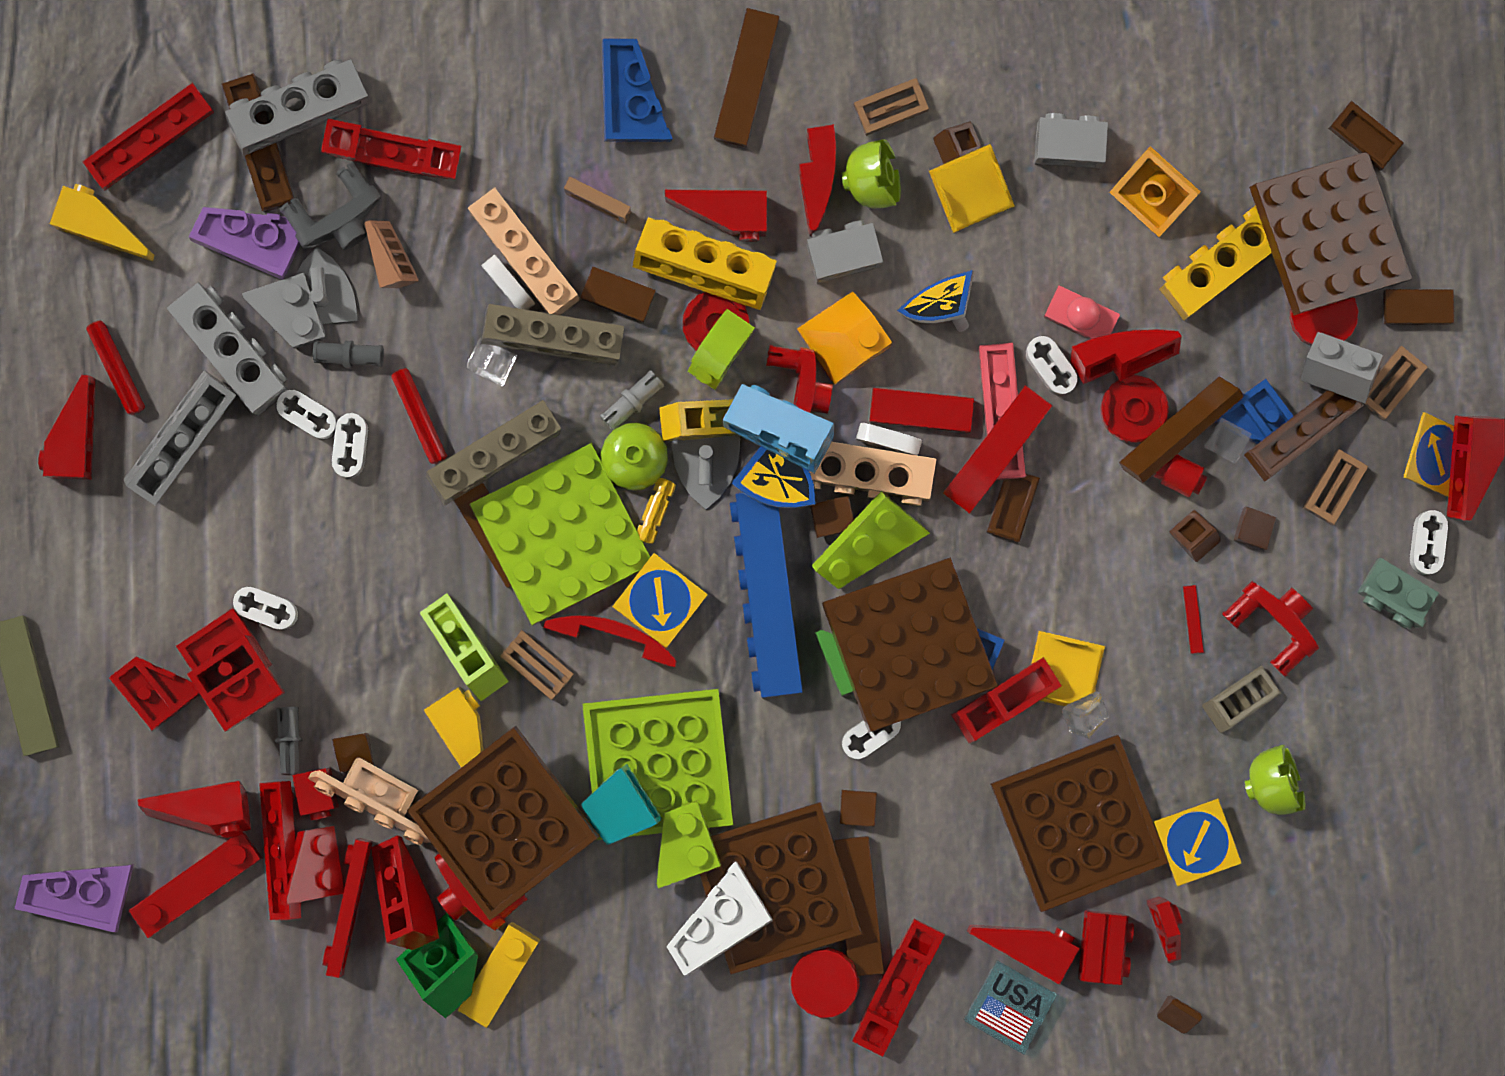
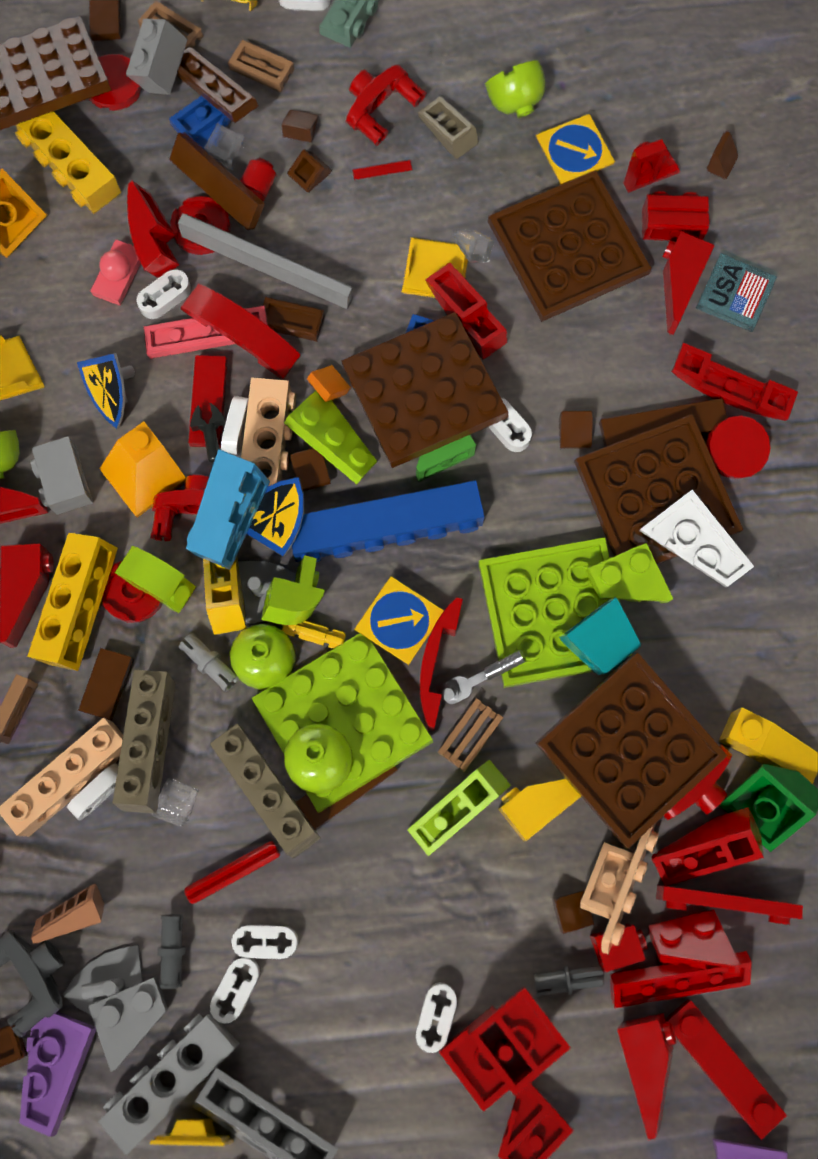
camera: 90 degrees left, 10 degrees down
(180, 371) = (193, 1132): none -> yellow piece
(520, 508) = (318, 758): none -> lime cylinder
(586, 660) = (462, 686): none -> flat silver piece
(684, 492) = (294, 601): none -> lime brick
(881, 411) = (209, 430): none -> pearl dark grey bar
(930, 542) = (328, 383): none -> orange tile
(1077, 480) = (265, 261): none -> light grey tile

